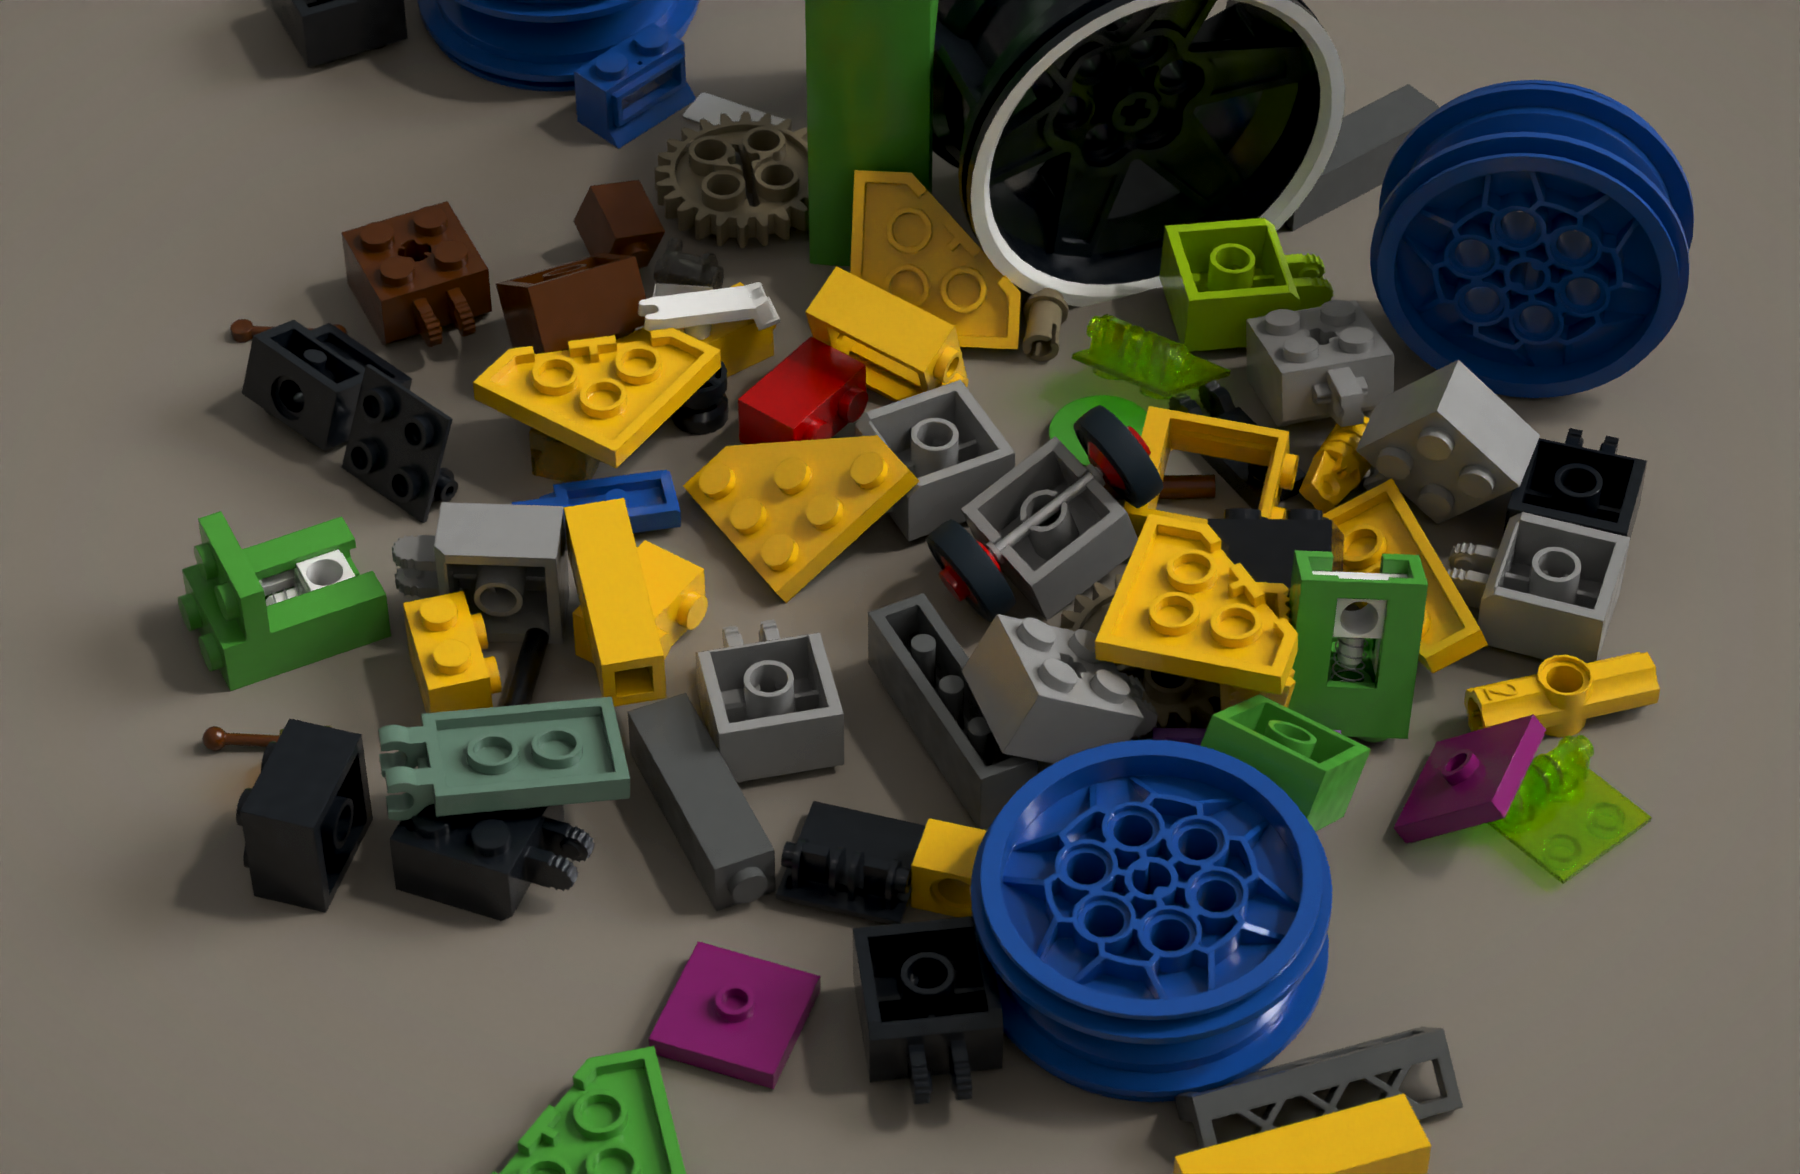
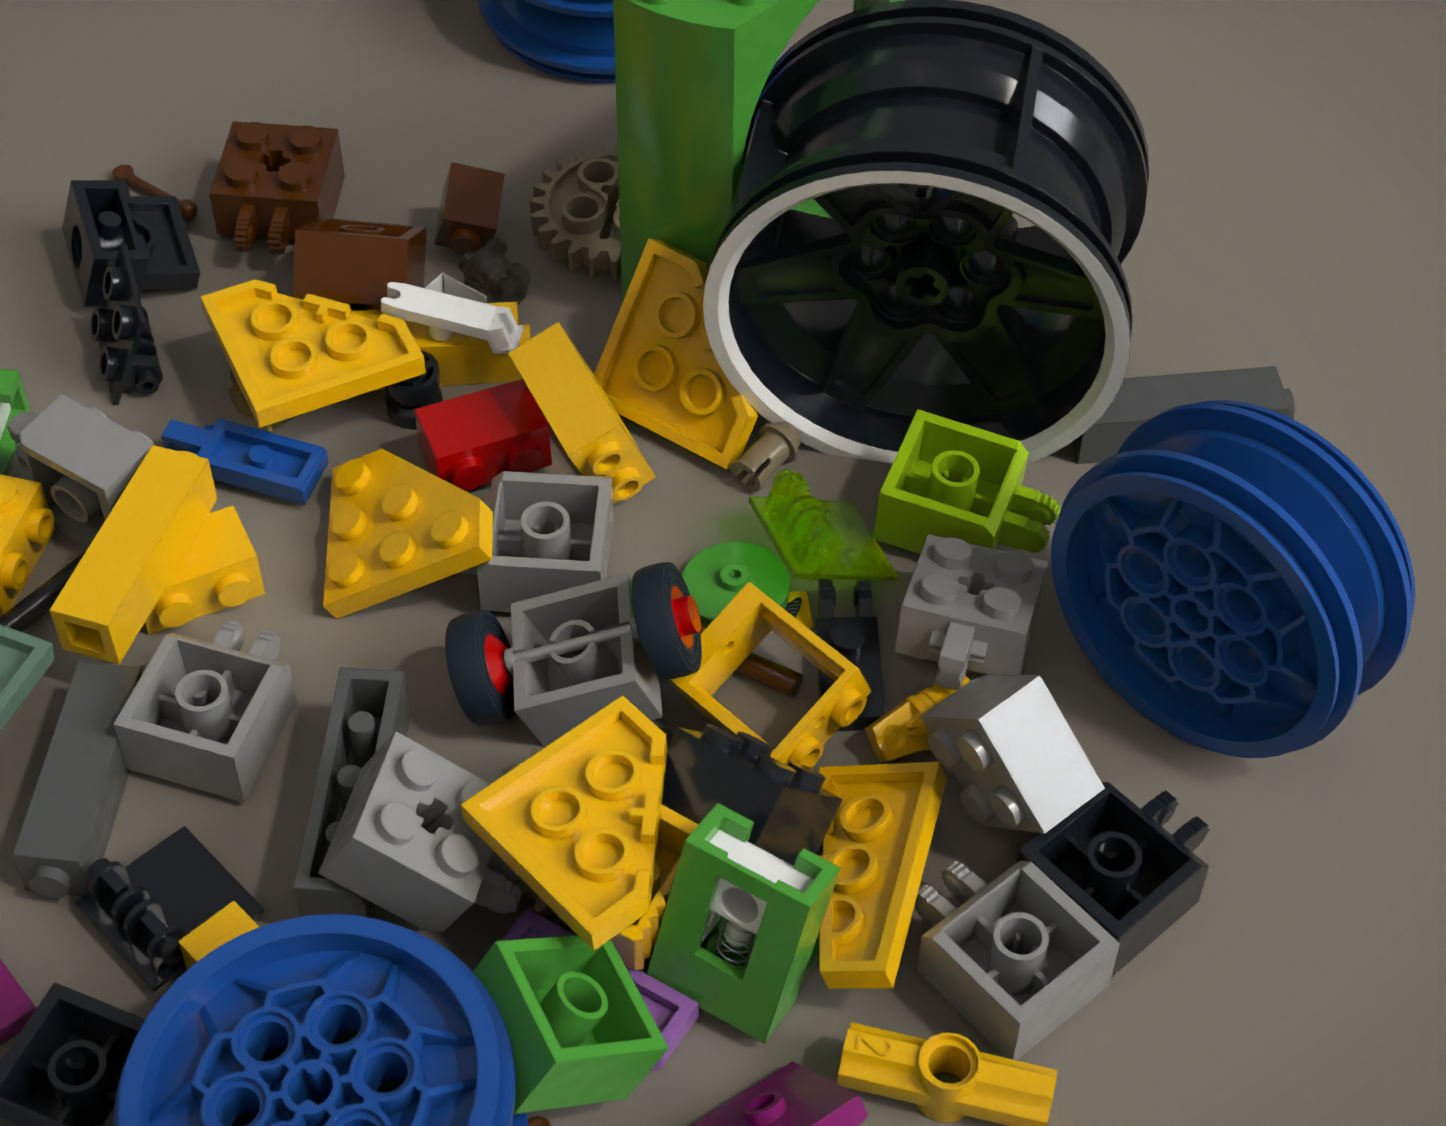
camera: 30 degrees right, 5 degrees up
(633, 86) = (578, 92): blue window -> none

